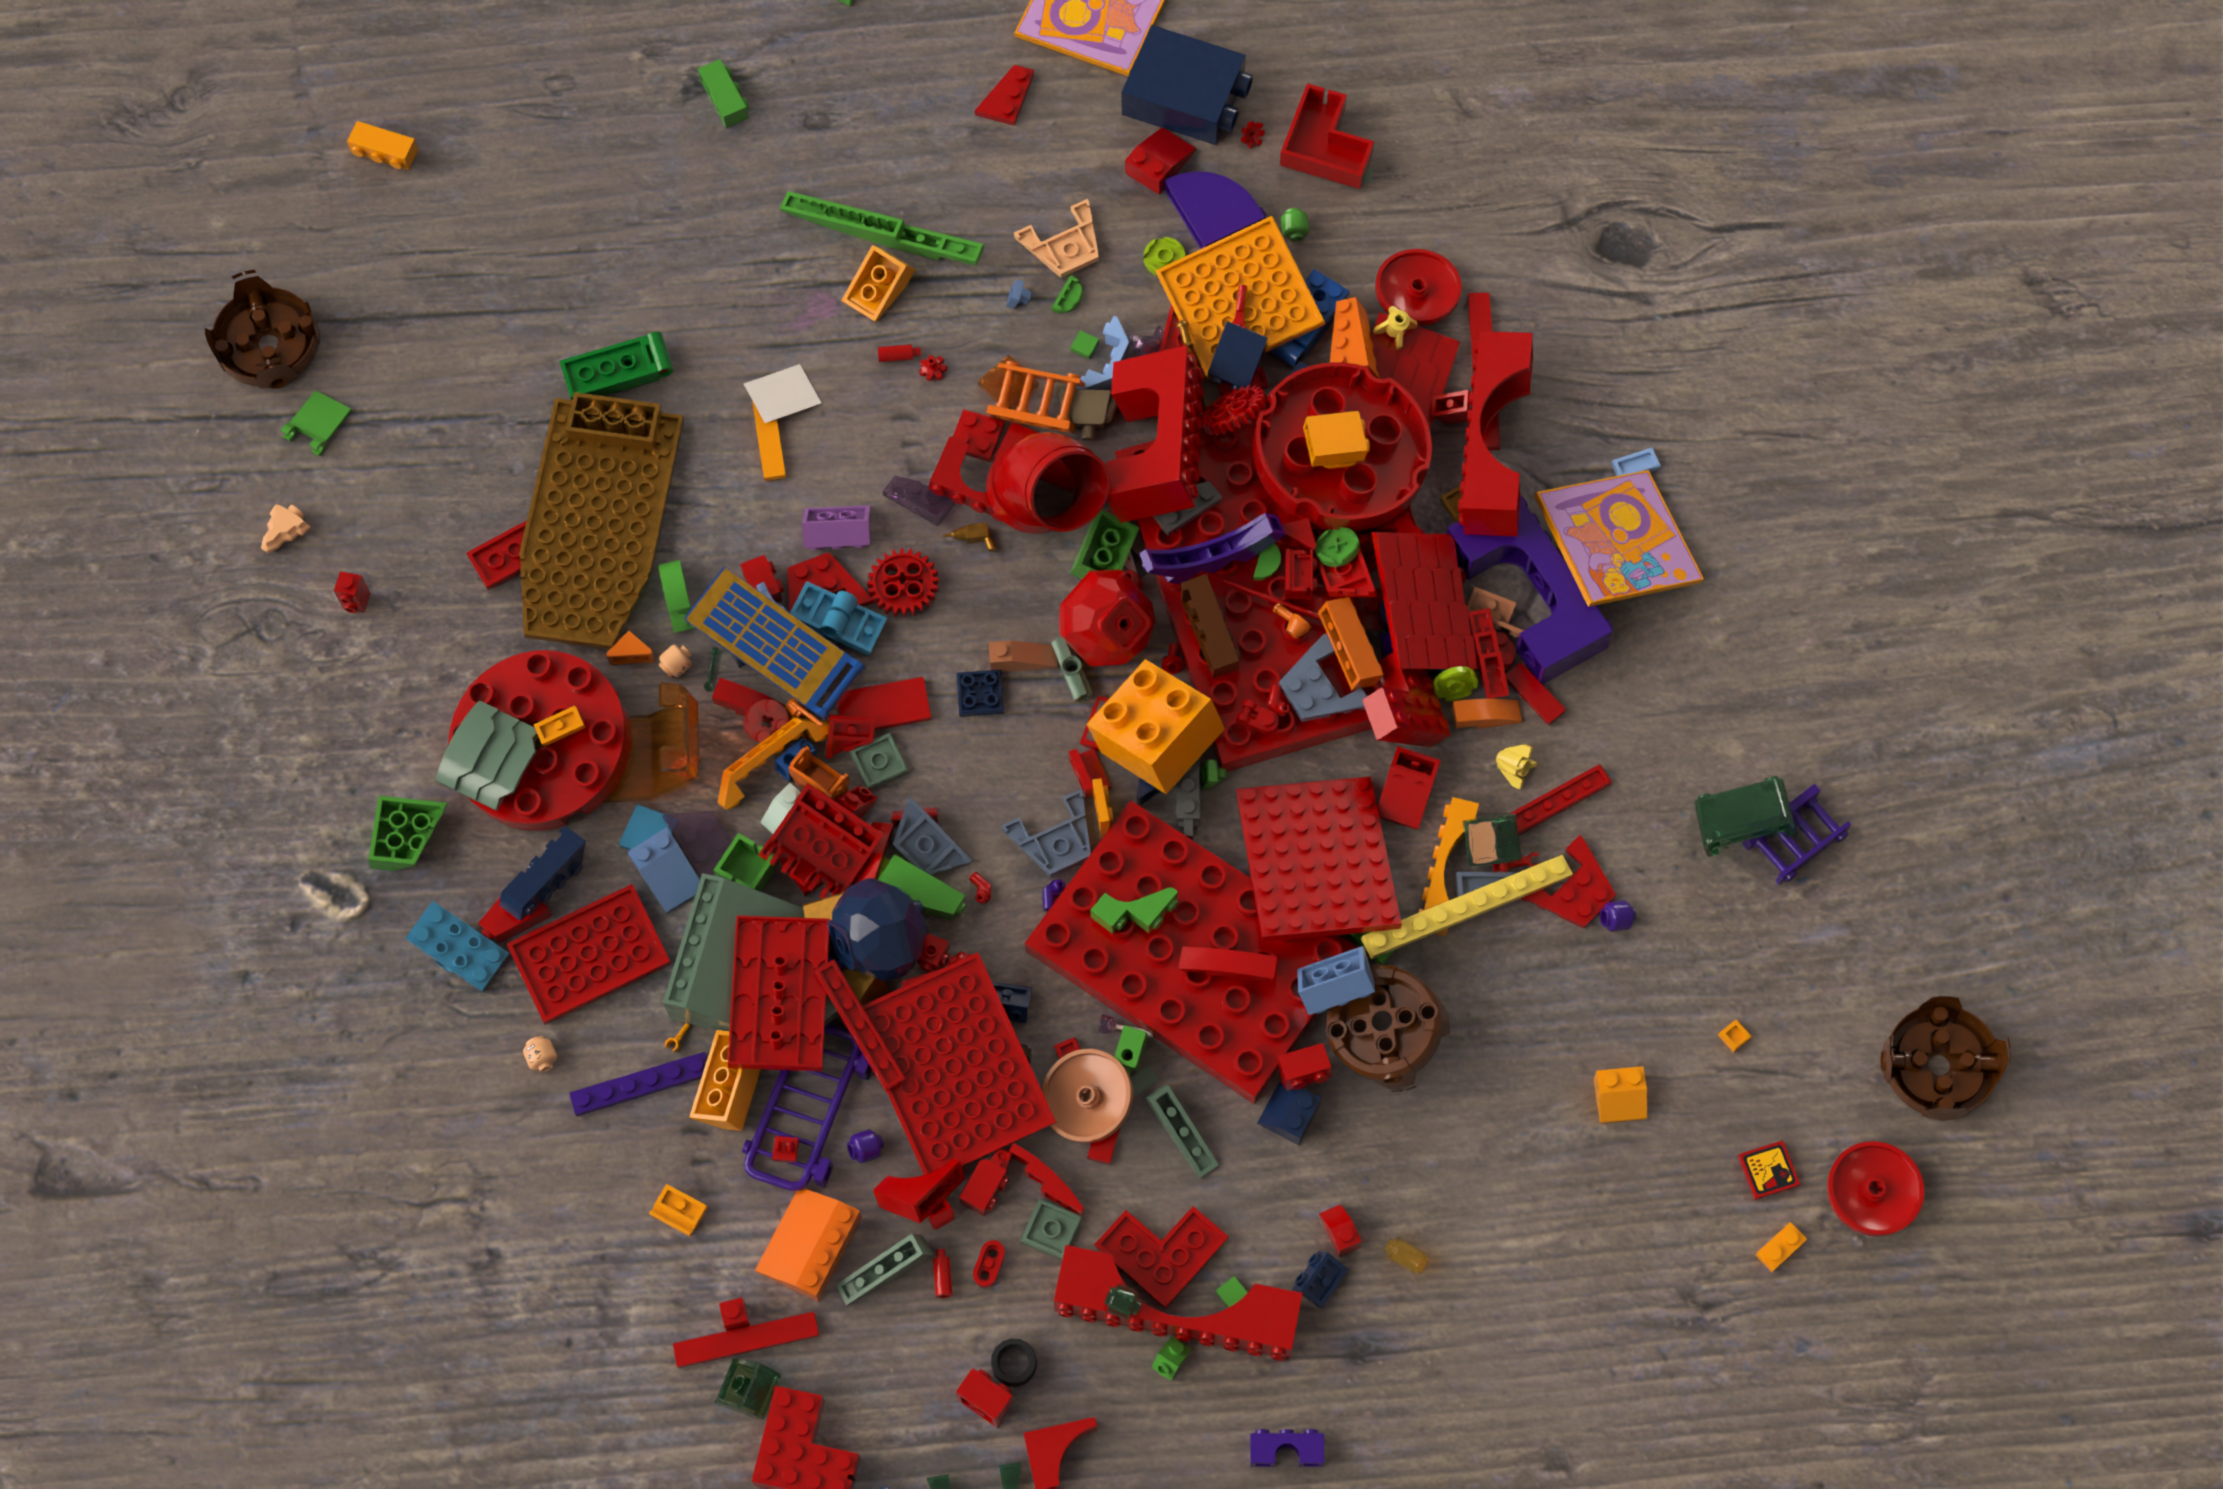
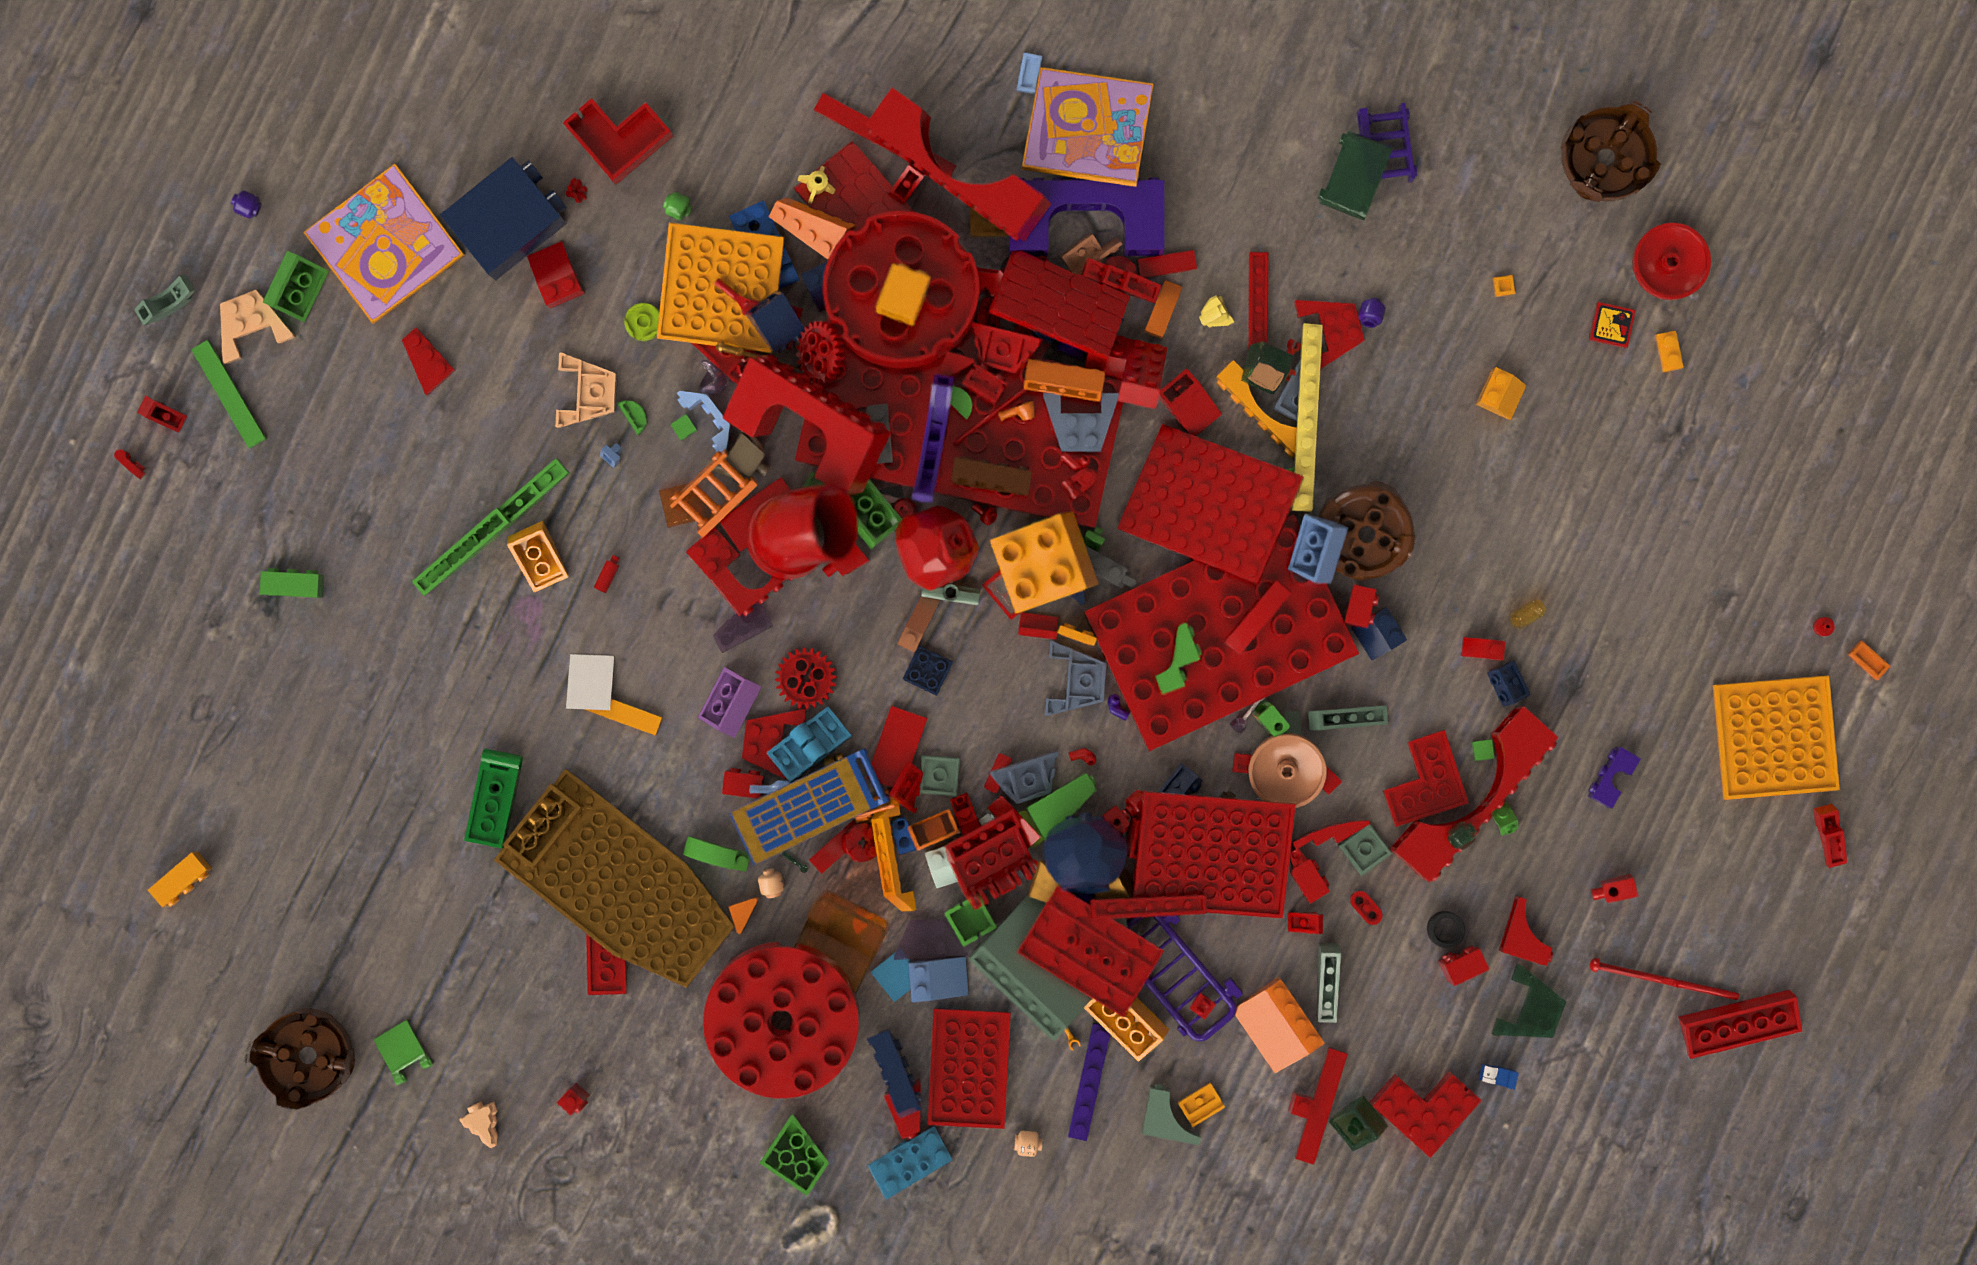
camera: 60 degrees left, 20 degrees up
(487, 755) = (780, 1067): sand green slope -> none
(559, 726) = (790, 1005): light orange plate -> none
(639, 1176) = (1159, 1118): none -> sand green arch
(865, 1146) = (1231, 947): dark purple head -> none
(920, 1195) = (1294, 932): red arch -> none
(932, 367) = (638, 554): red plant -> none
(942, 1275) = (1355, 944): red cylinder -> none
(974, 533) = (795, 601): pearl gold piece -> none
(1047, 553) = (854, 561): none -> red torso
(1212, 205) = (625, 259): dark purple brick -> none
(1337, 547) = (981, 343): bright green tile -> none
(1419, 284) = (788, 144): red dish -> none
(1455, 683) = (1131, 319): lime tile -> none

